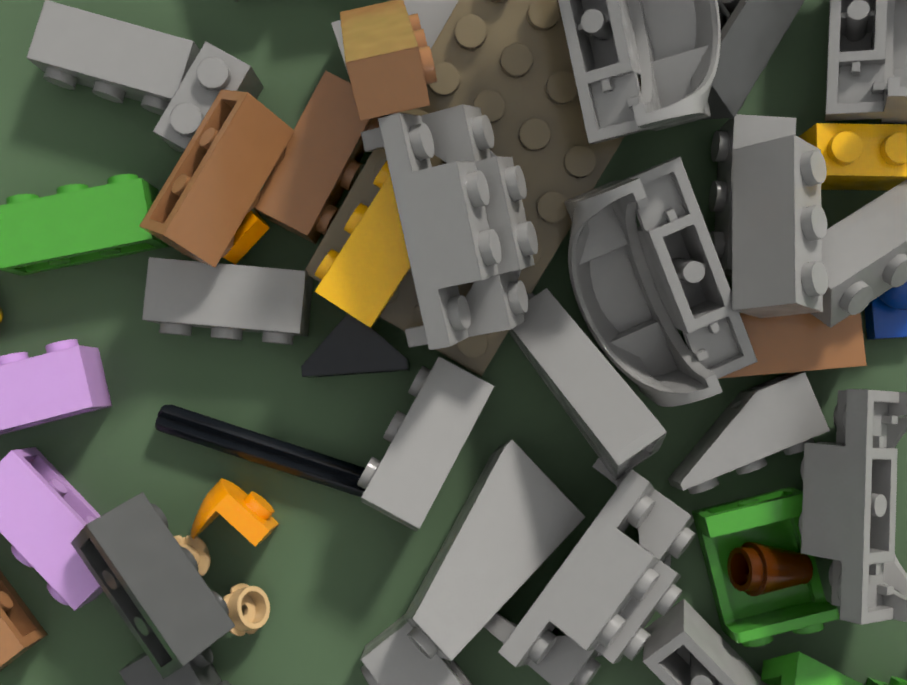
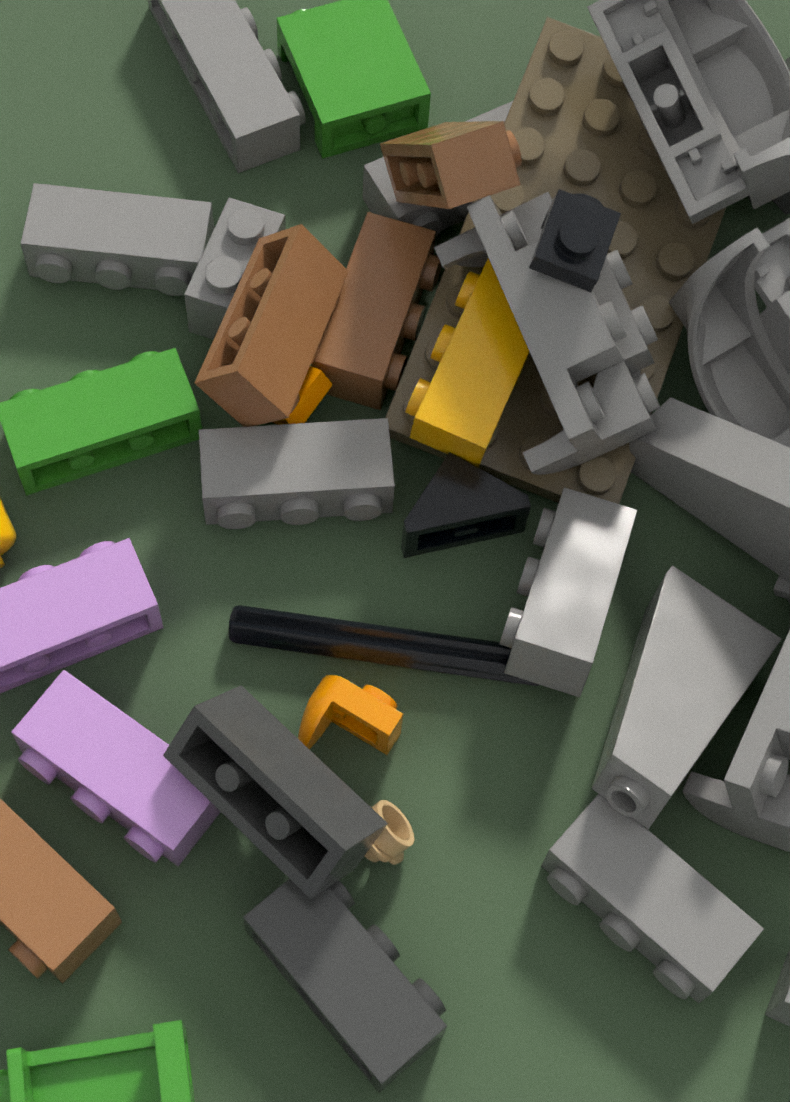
camera: 15 degrees left, 20 degrees down
(463, 175) = (575, 239): none -> black bracket

